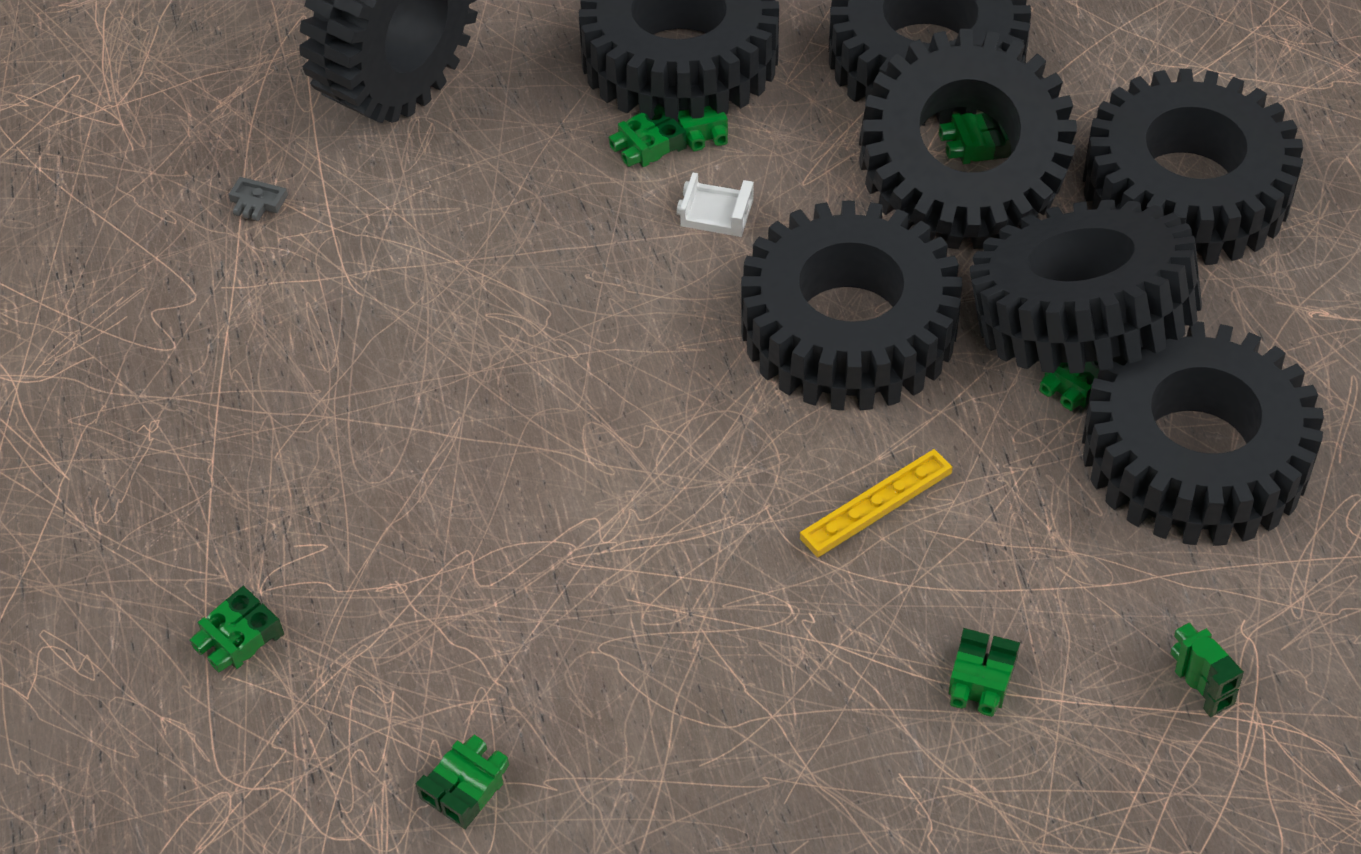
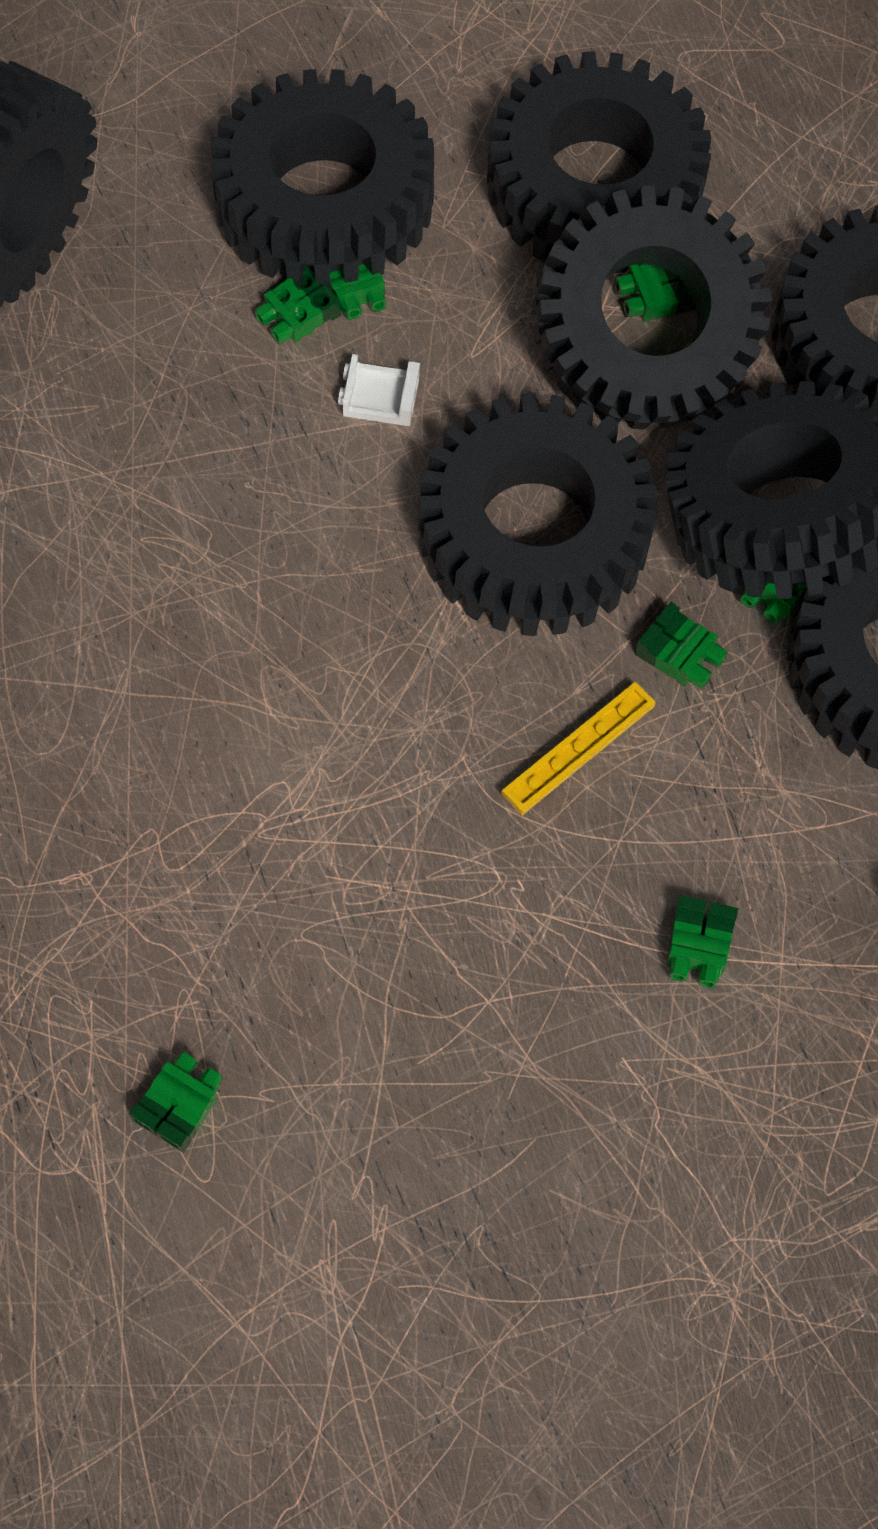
camera: 10 degrees left, 15 degrees up
(979, 423) = (680, 647): none -> green hips

